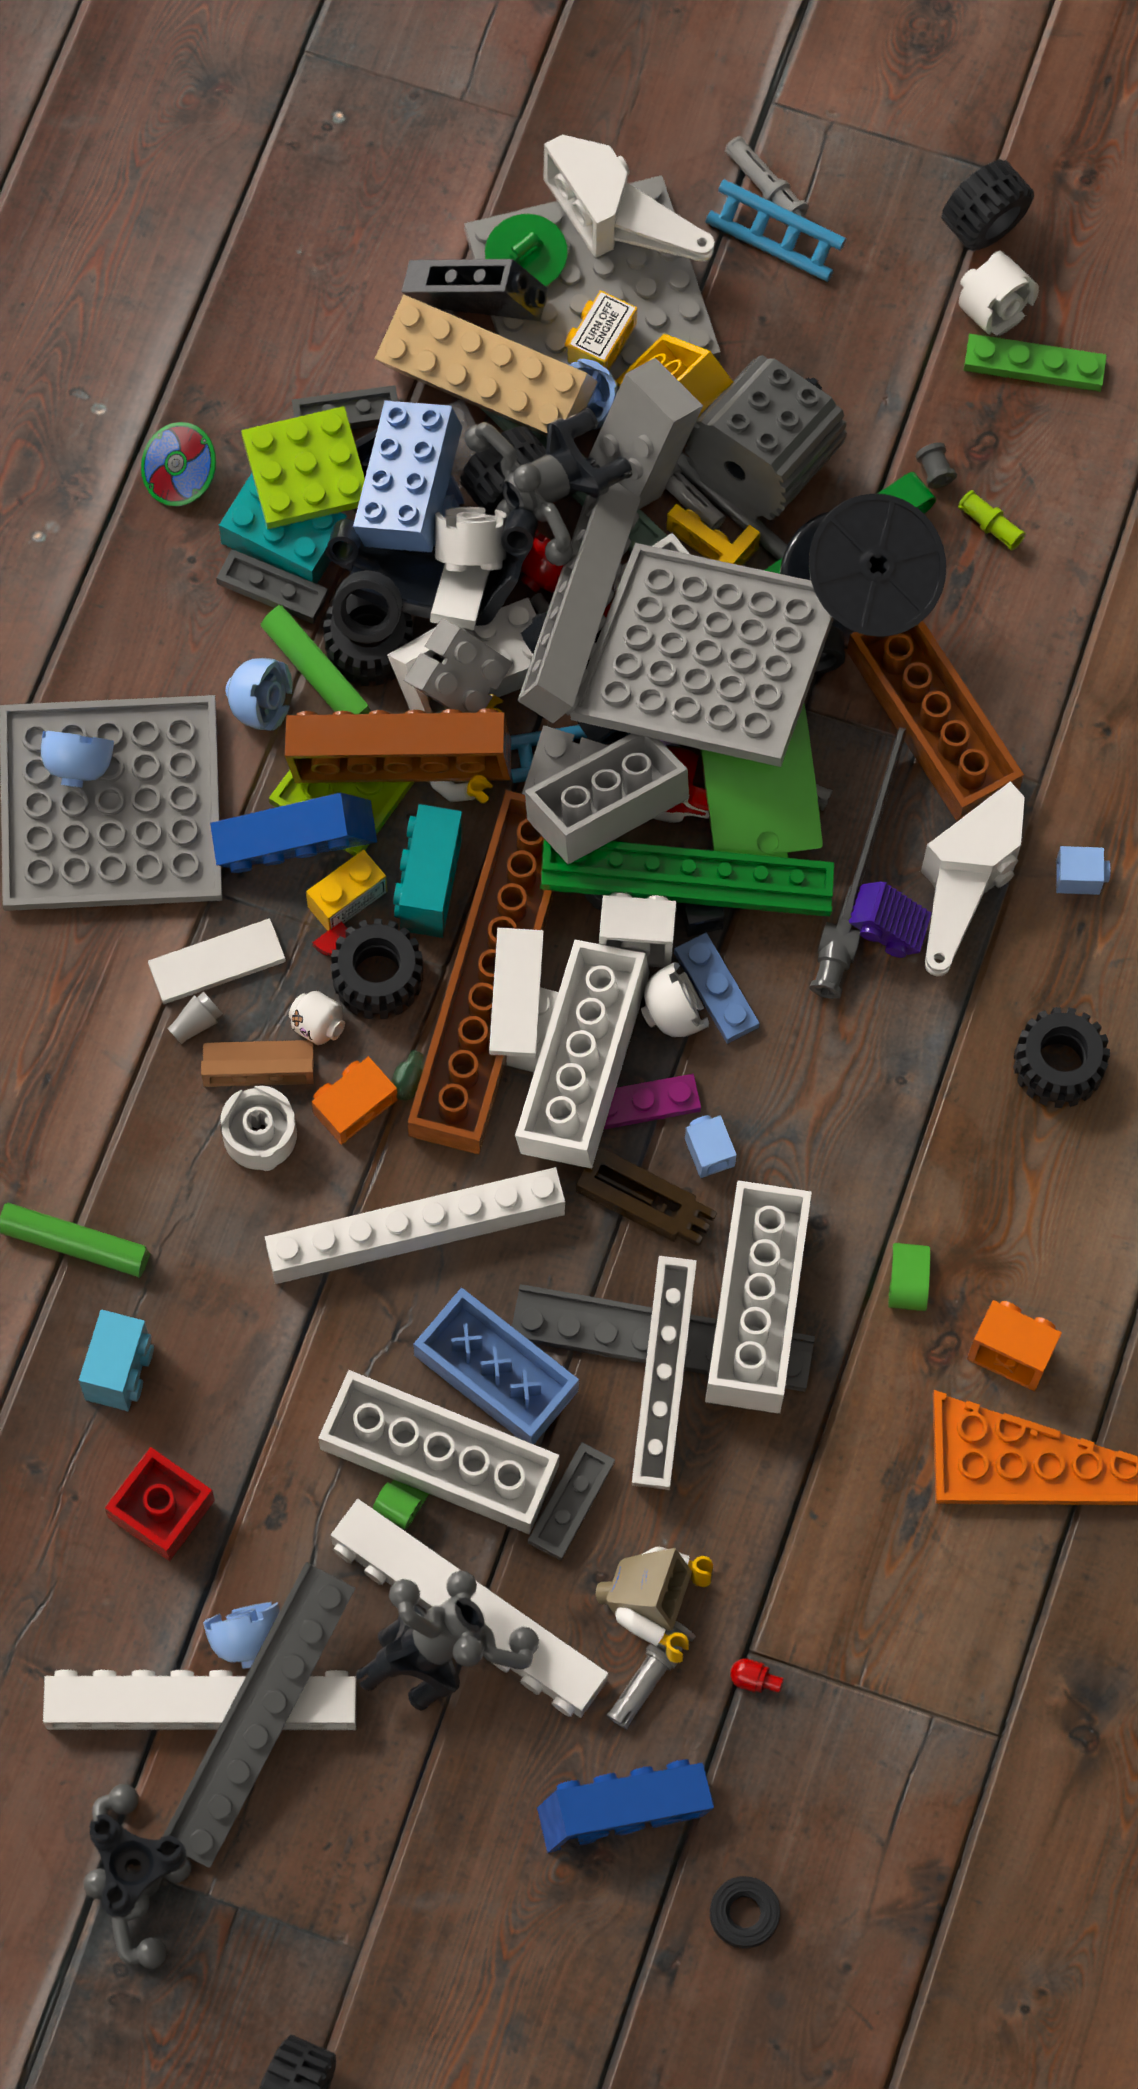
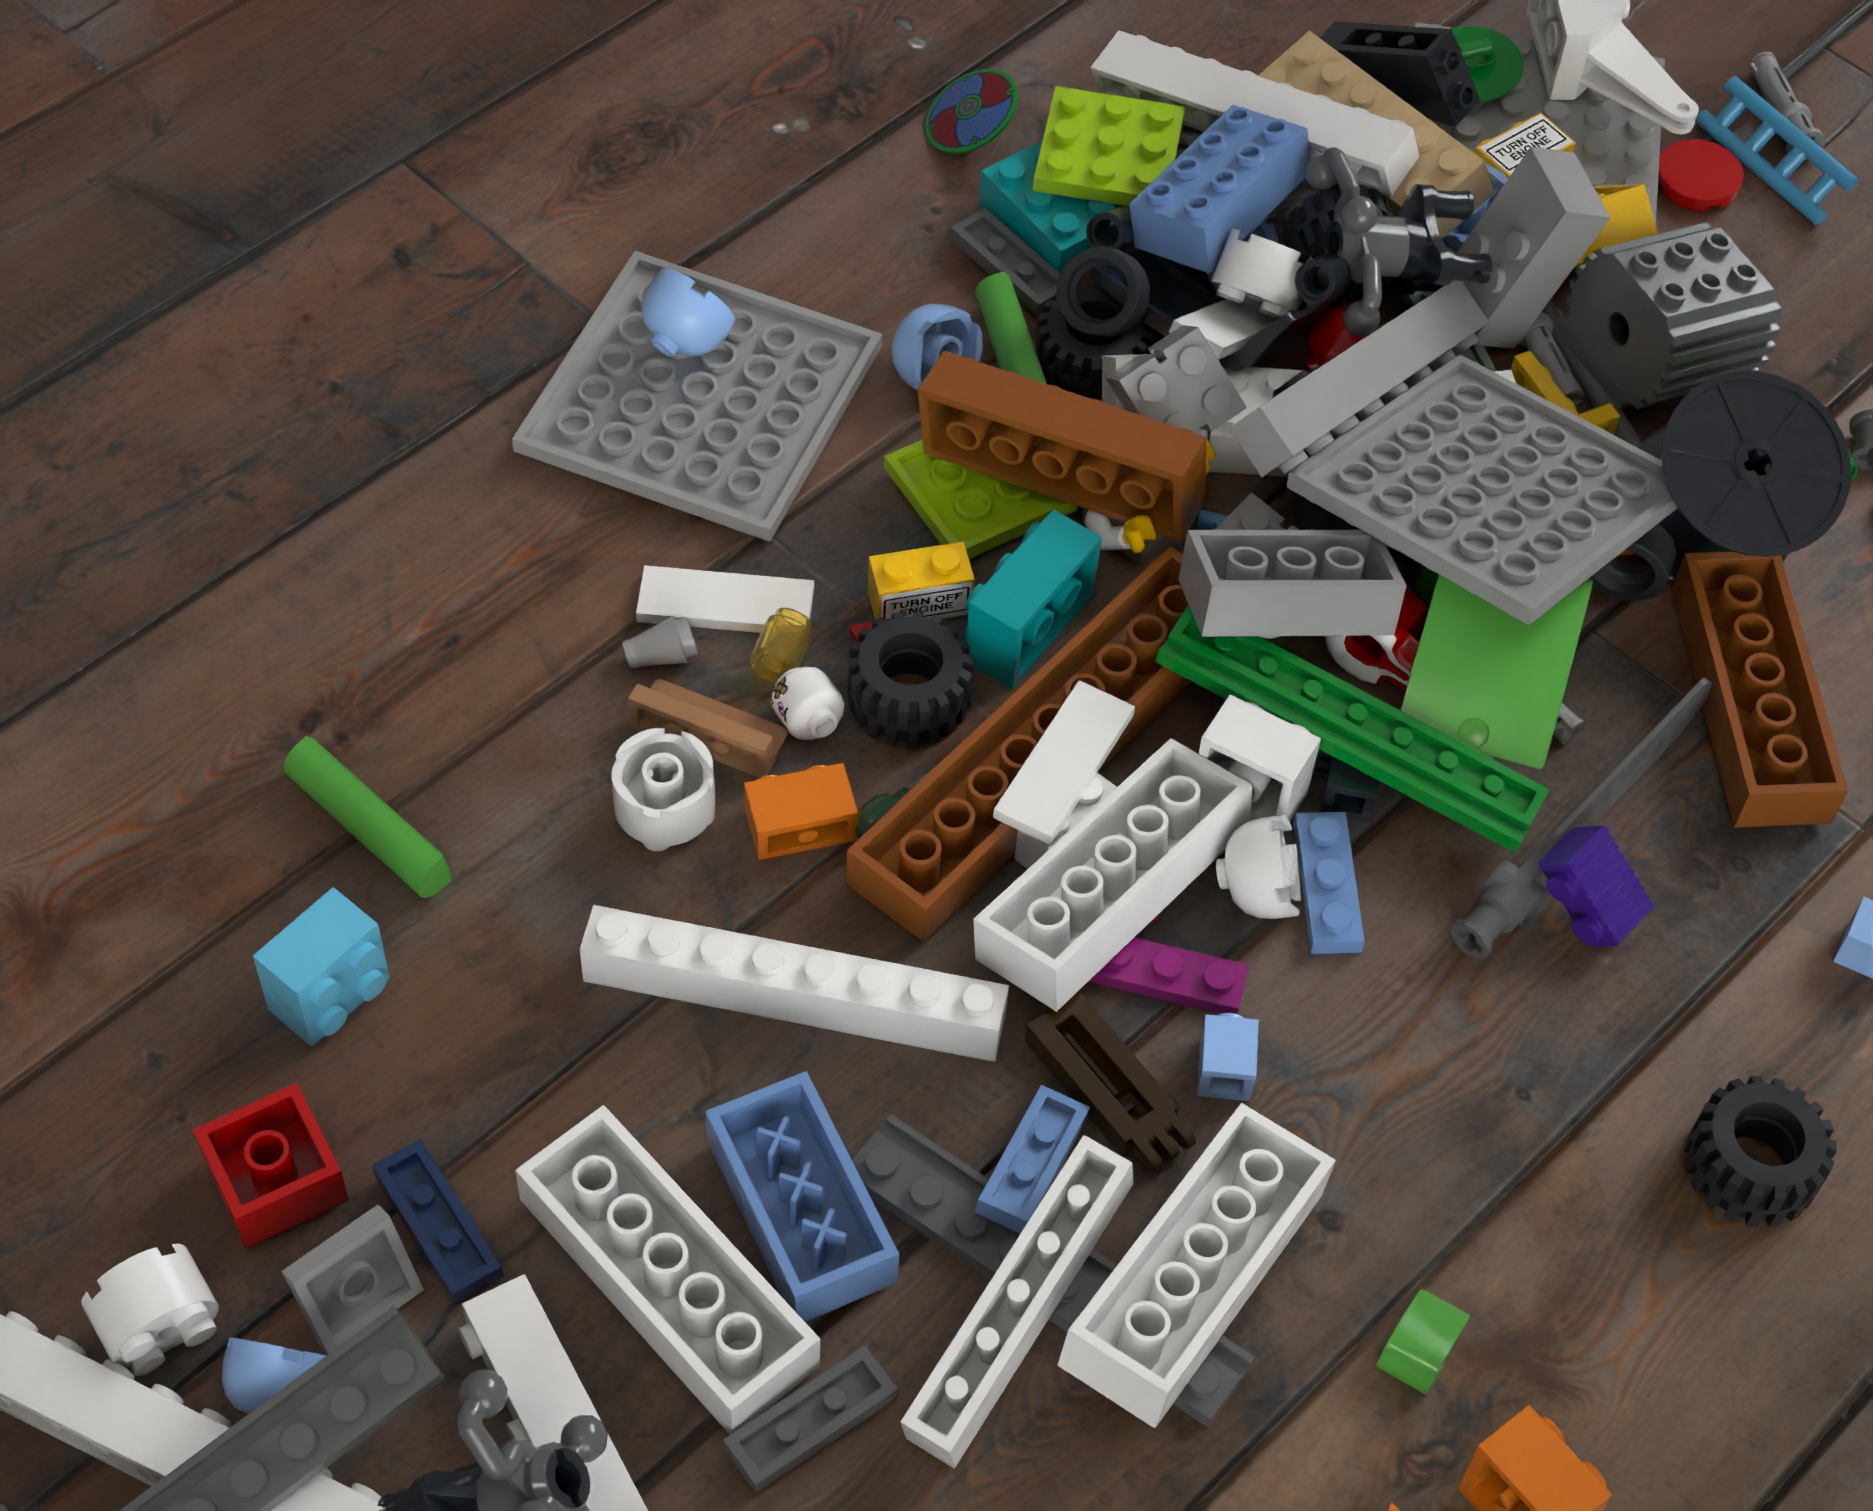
camera: 25 degrees right, 15 degrees down
(144, 1627) = (151, 1308): none -> white brick
(256, 1552) = (352, 1279): none -> light grey hinge
(277, 982) = (781, 644): none -> clear yellow brick
(278, 1487) = (437, 1221): none -> dark blue plate
(293, 831) = (894, 490): blue wedge -> none
(364, 386) = (1138, 68): none -> white brick
(399, 1503) = (580, 1312): bright green panel -> none
(624, 1274) = (1032, 1159): none -> medium blue plate
(729, 275) = (1699, 174): none -> red tile
(965, 865) = (1729, 863): white slope -> none

